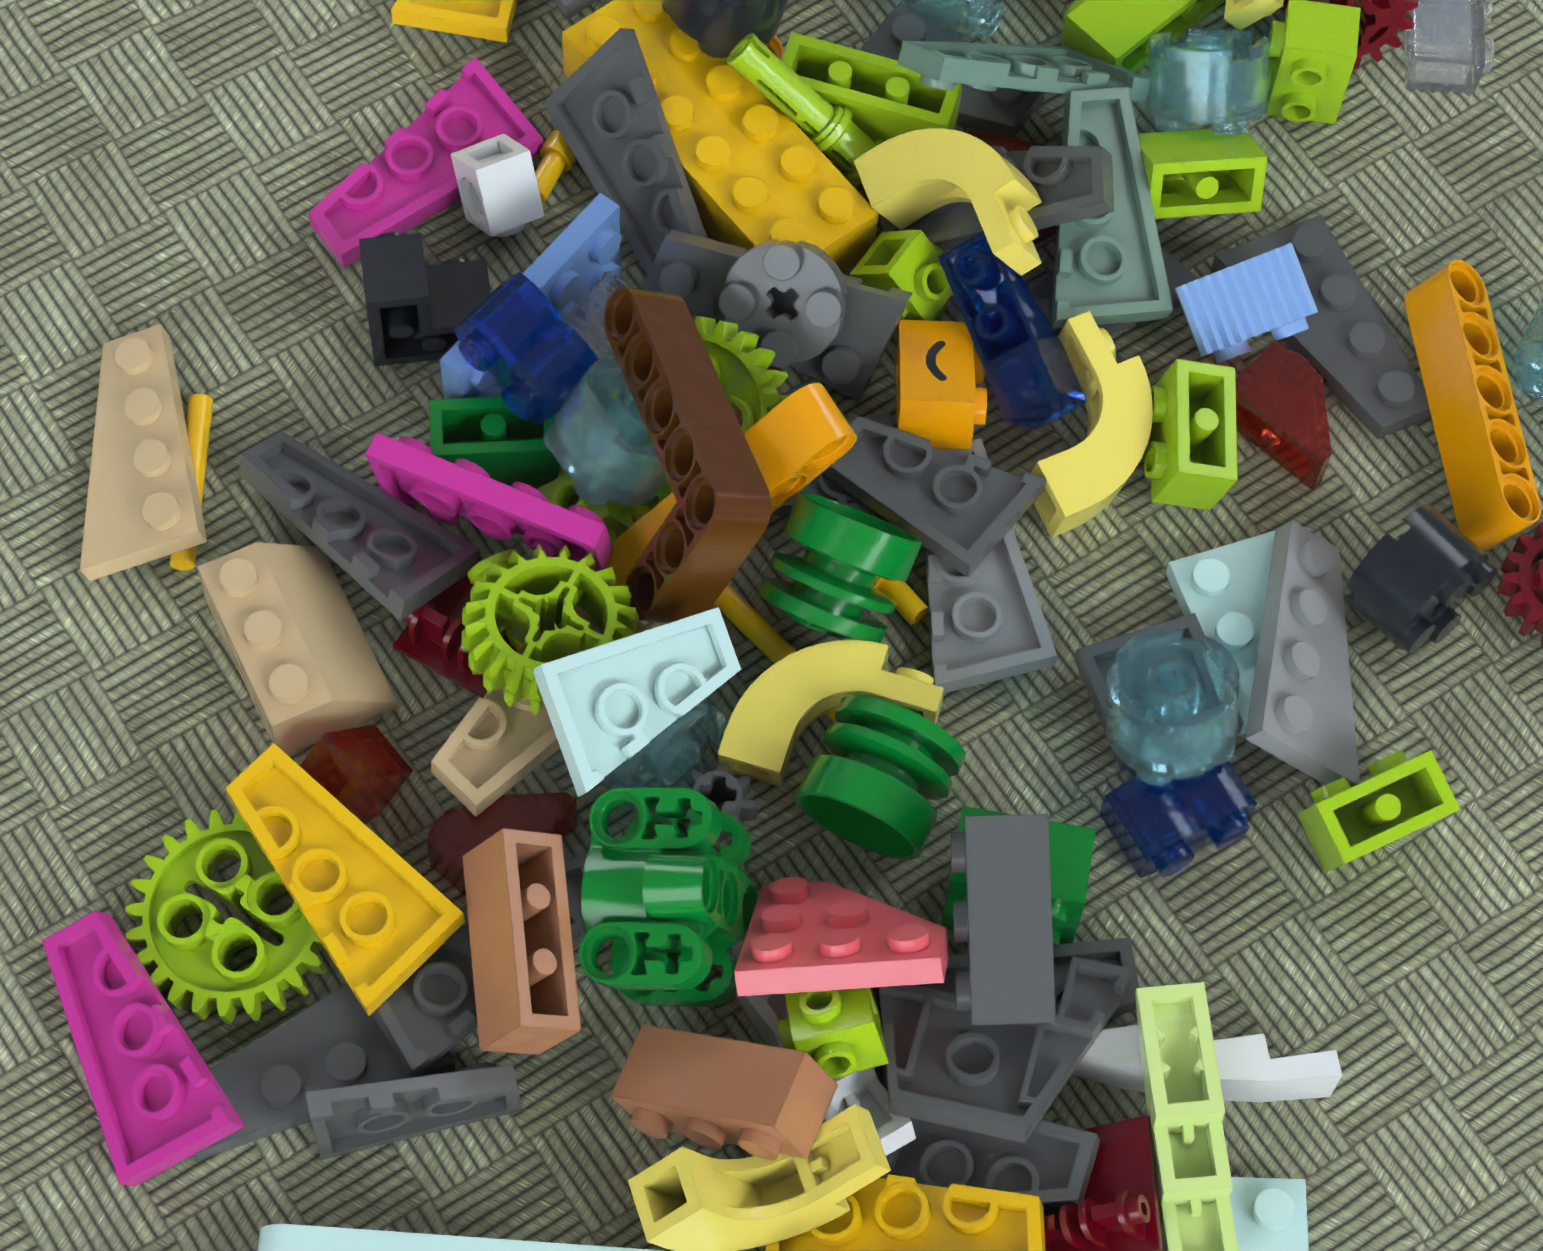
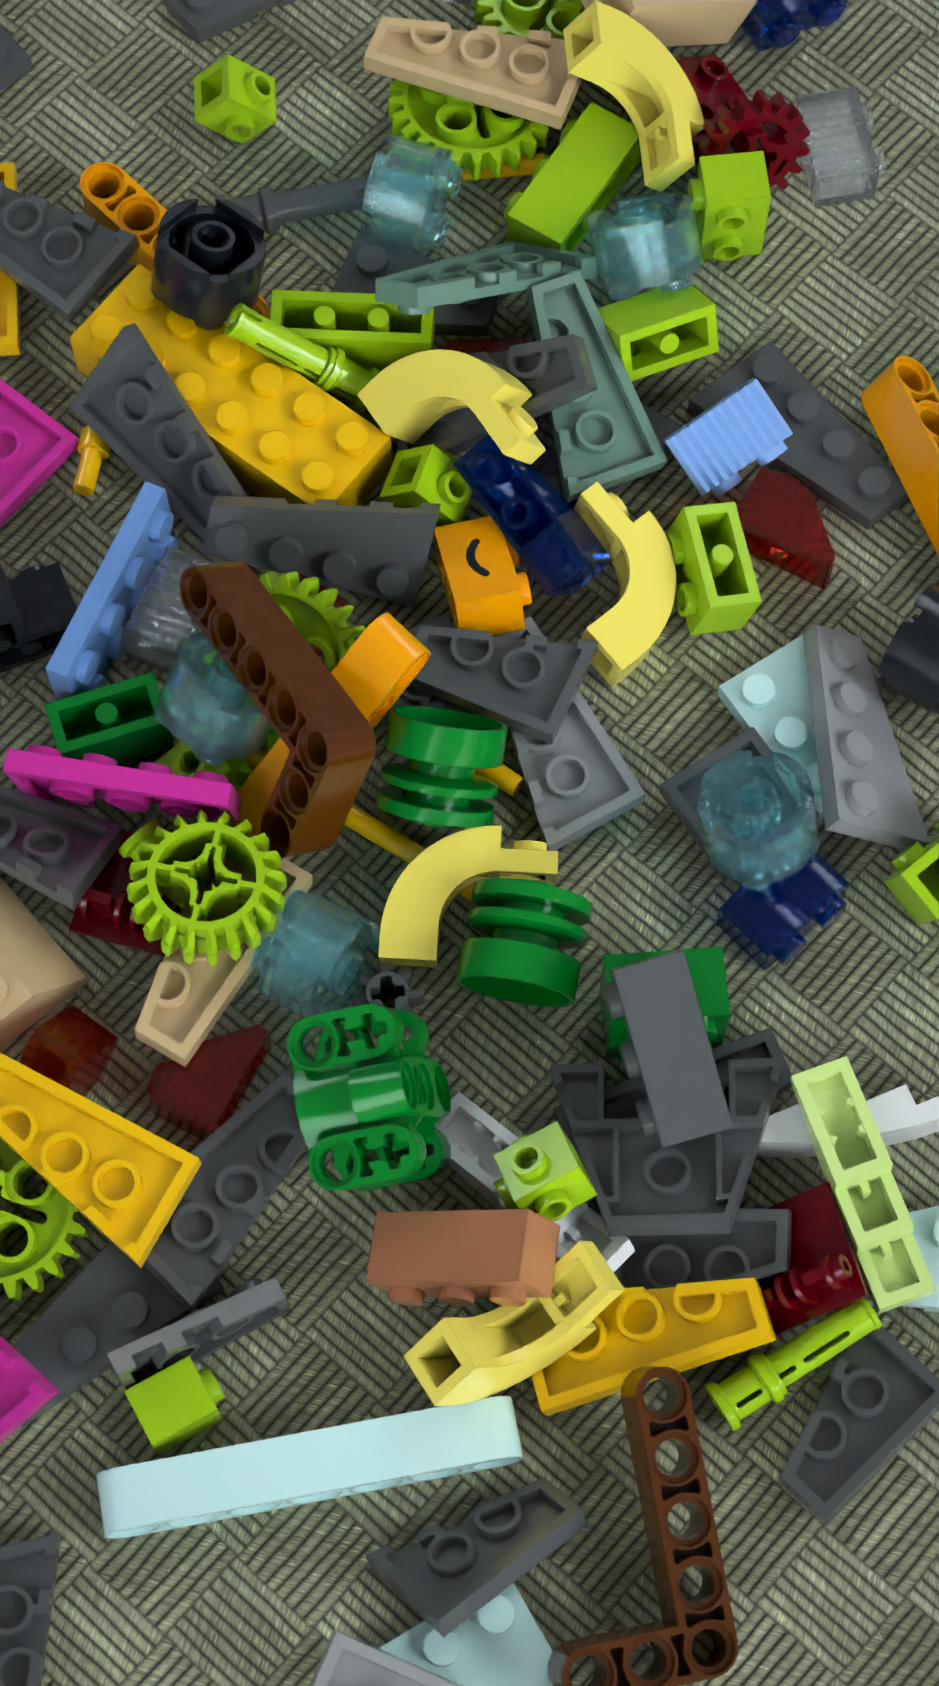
camera: 10 degrees left, 5 degrees up
(368, 1175) = (176, 1403): none -> lime brick
(498, 185) = (49, 491): white brick -> none
(521, 942) = (256, 1171): nougat brick -> none
(525, 348) = (119, 640): clear blue brick -> none
(631, 689) = (293, 927): light aqua wing -> none
(786, 266) = (324, 508): dark grey plate -> none
(834, 939) = (523, 1099): coral plate -> none

